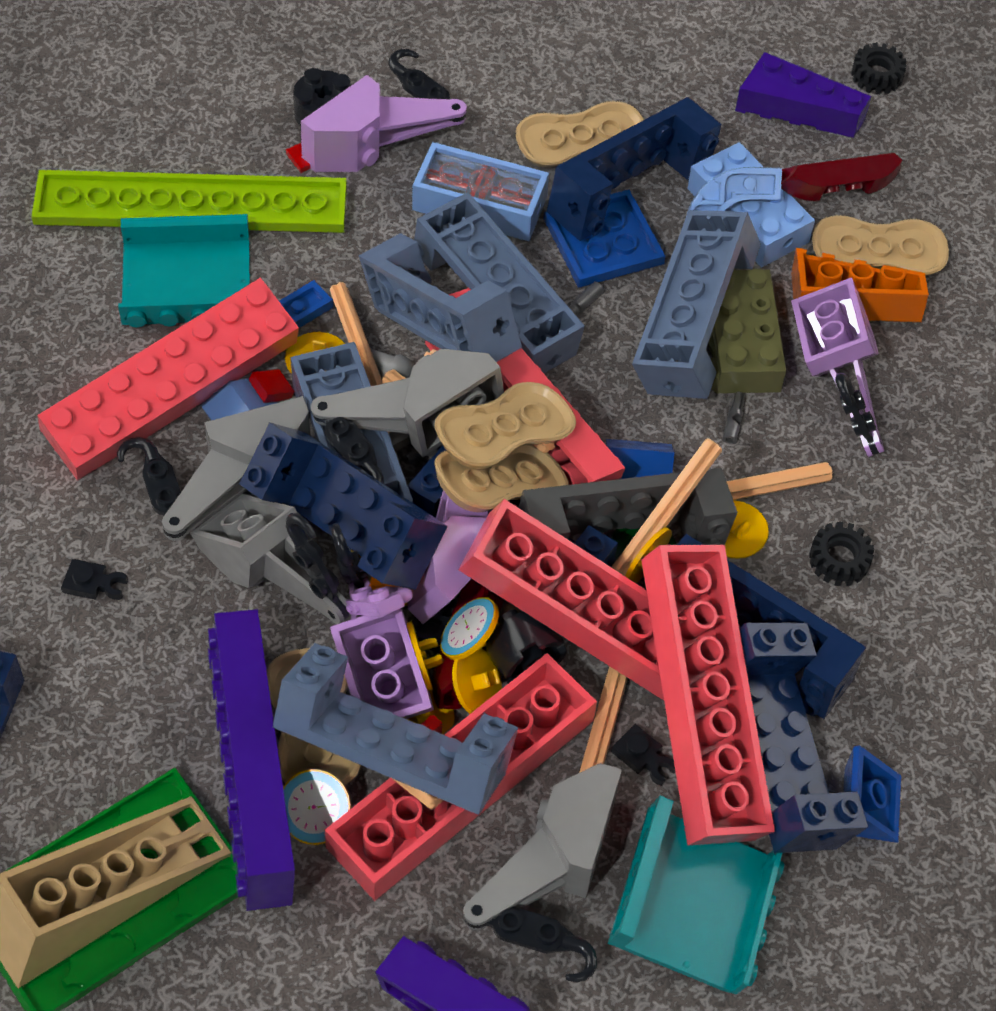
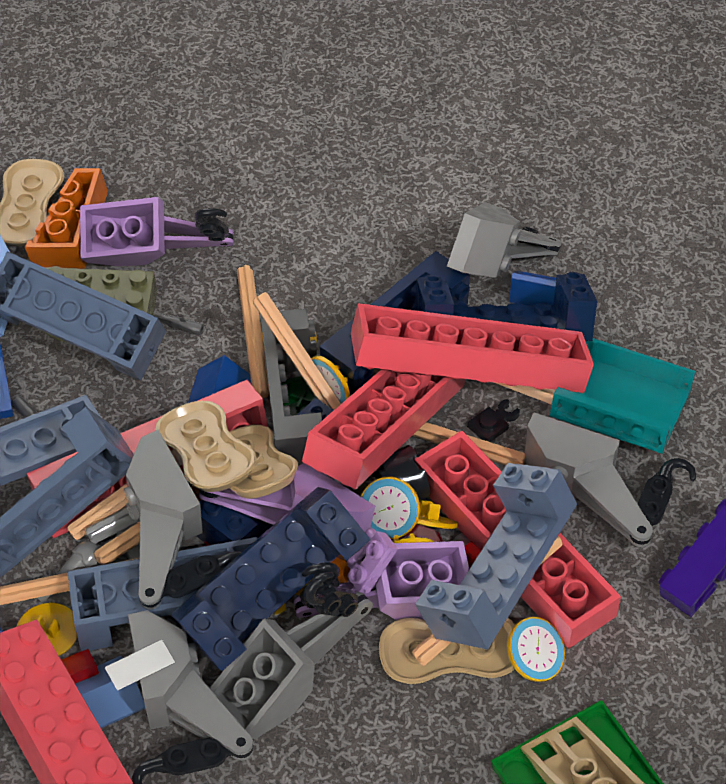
camera: 80 degrees left, 5 degrees down
(242, 413) = (139, 665): none -> white sticker
(250, 762) = (497, 683): dark purple brick -> none
(847, 538) = (330, 283): black tyre -> none
(892, 697) = (492, 238): none -> light grey slope

